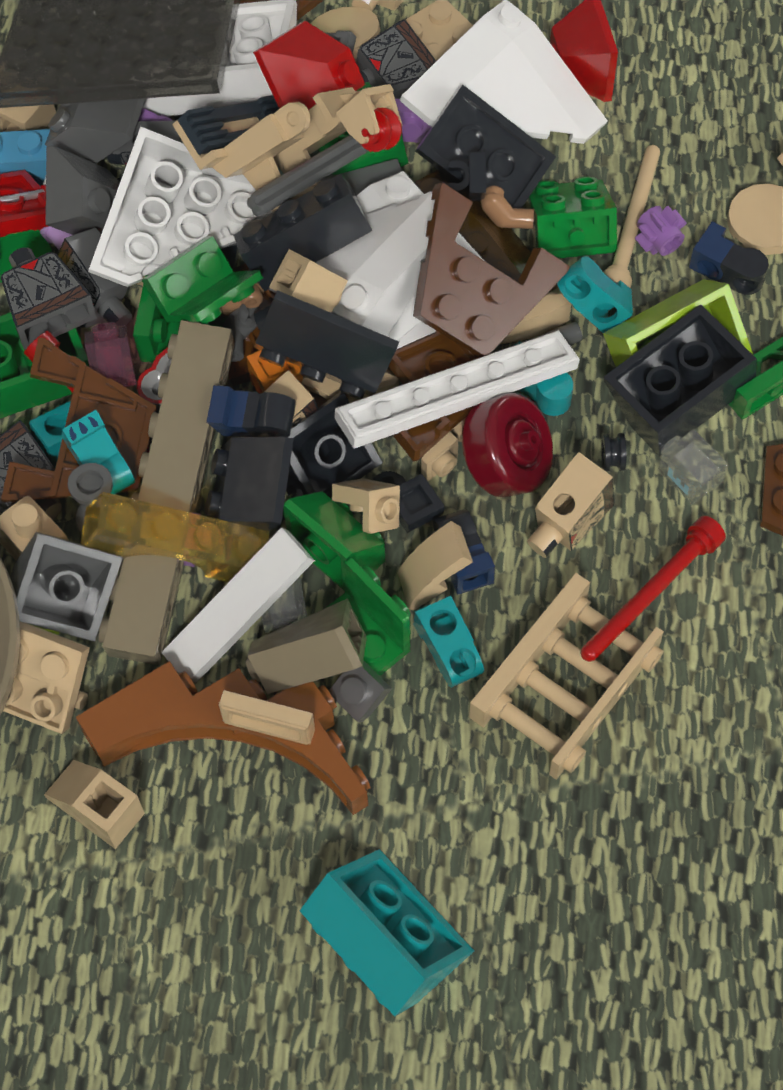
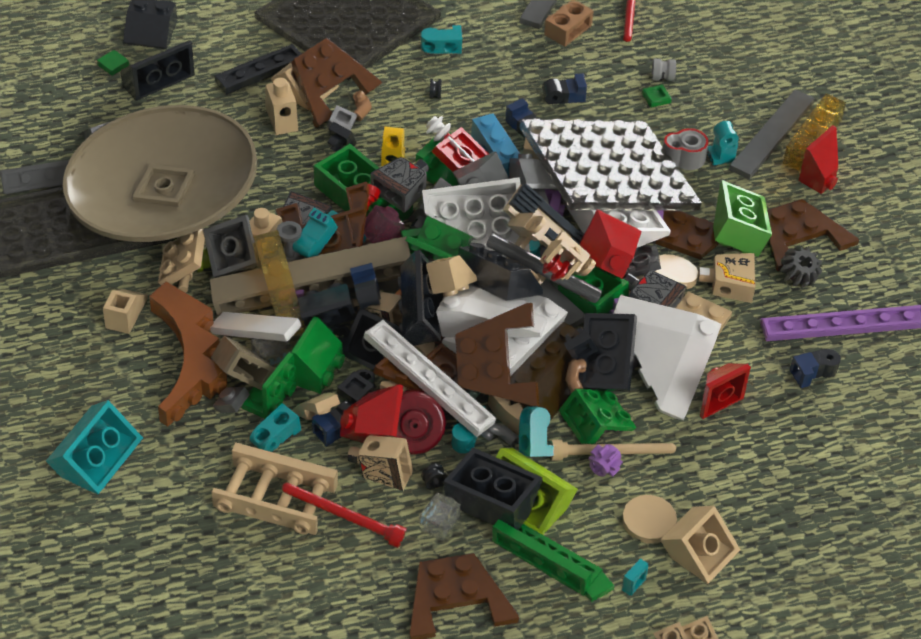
camera: 65 degrees right, 15 degrees down
(267, 717) = (188, 351): tan tile -> none
(375, 499) = (341, 364): tan bracket -> none
(498, 484) = (373, 415): none -> red slope
(728, 262) = (599, 507): leg -> none

